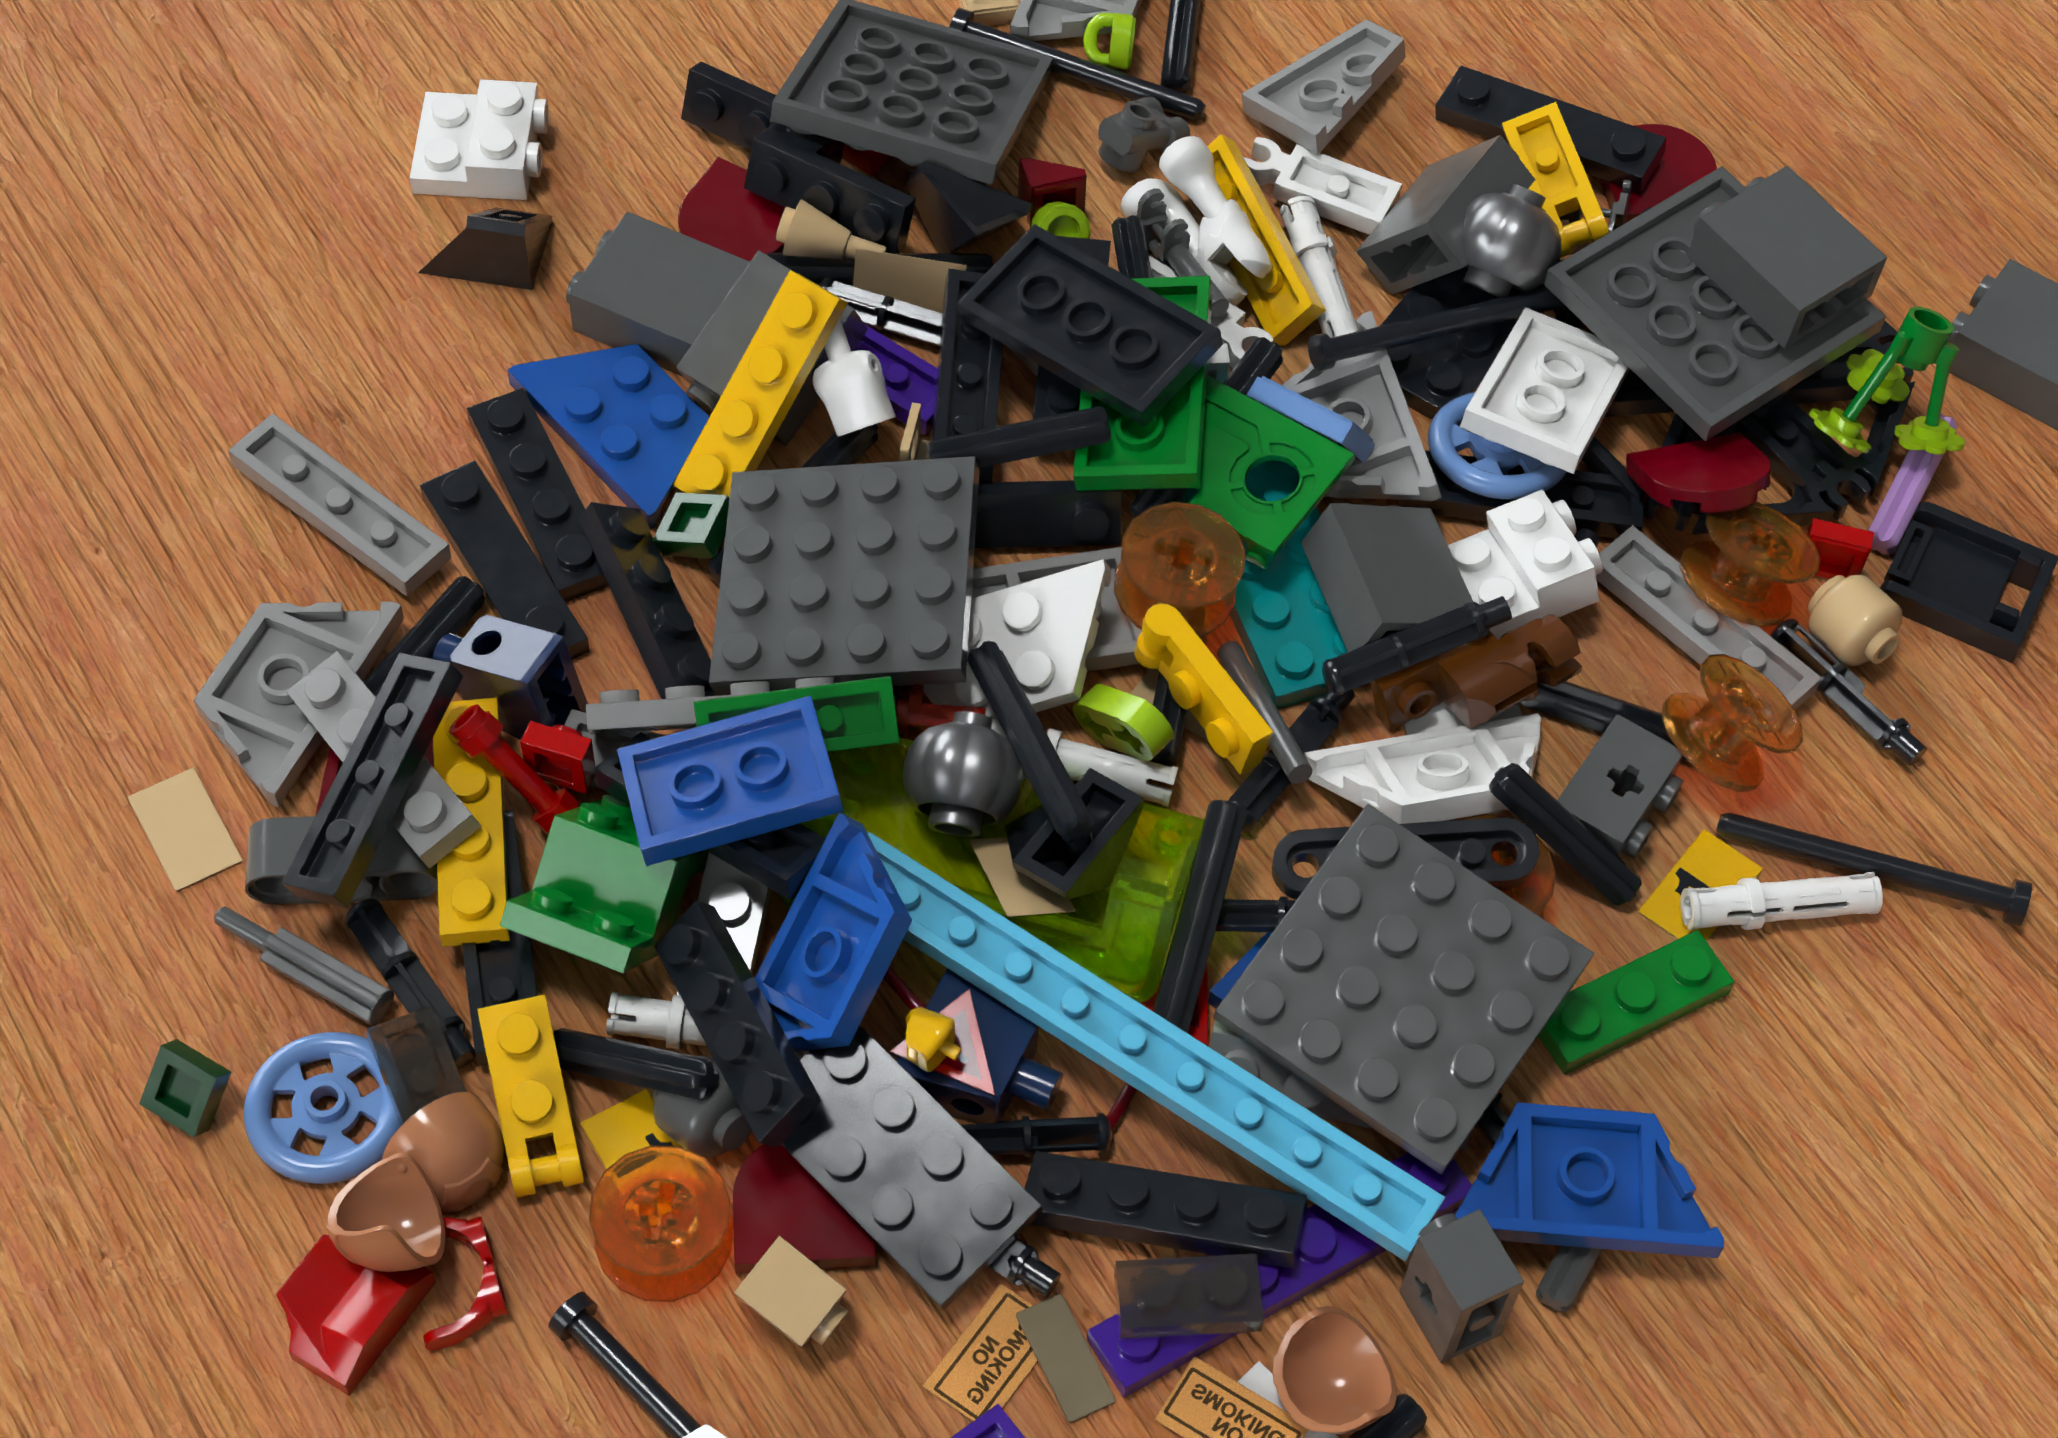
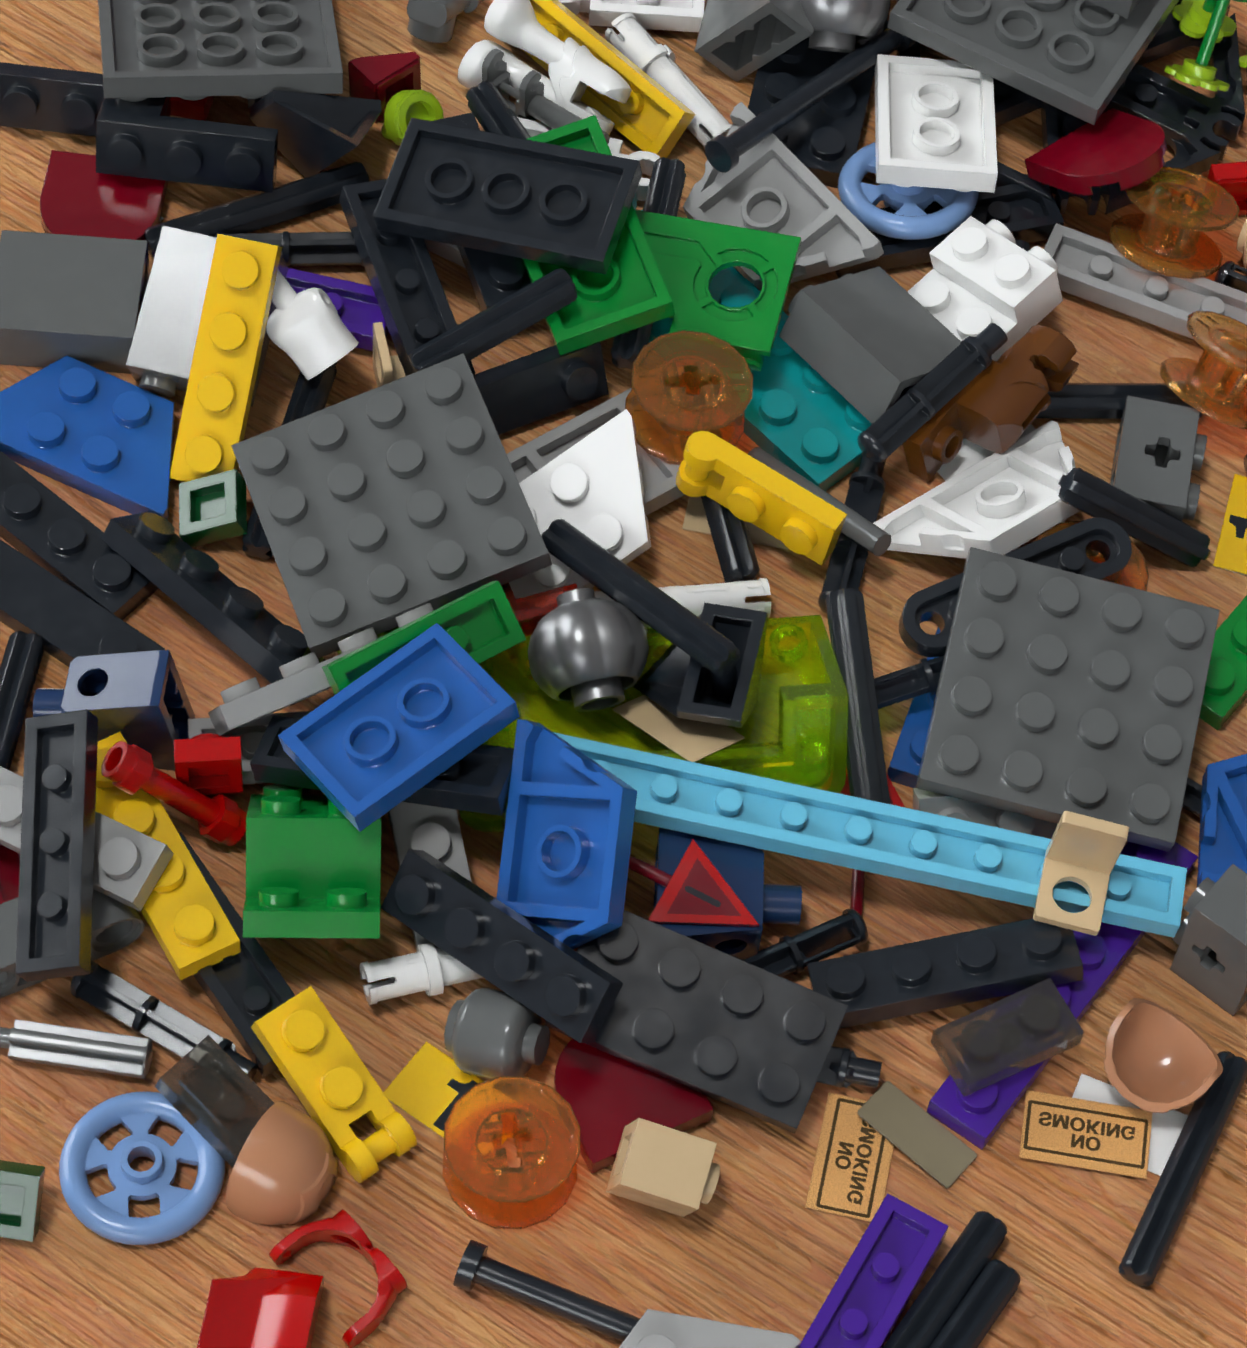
camera: 25 degrees left, 0 degrees up
(388, 1217) = (267, 1240): nougat helmet -> none
(635, 1064) = (425, 1017): black axle -> none
(816, 235) = (193, 195): tan cone -> none
(903, 277) = (296, 209): tan sticker -> none
(930, 1038) = (682, 893): yellow piece -> none
(1123, 722) = (701, 553): lime beam -> none
(1312, 416) = (739, 214): medium blue tile -> none
(1336, 1142) = (1083, 853): none -> tan bracket

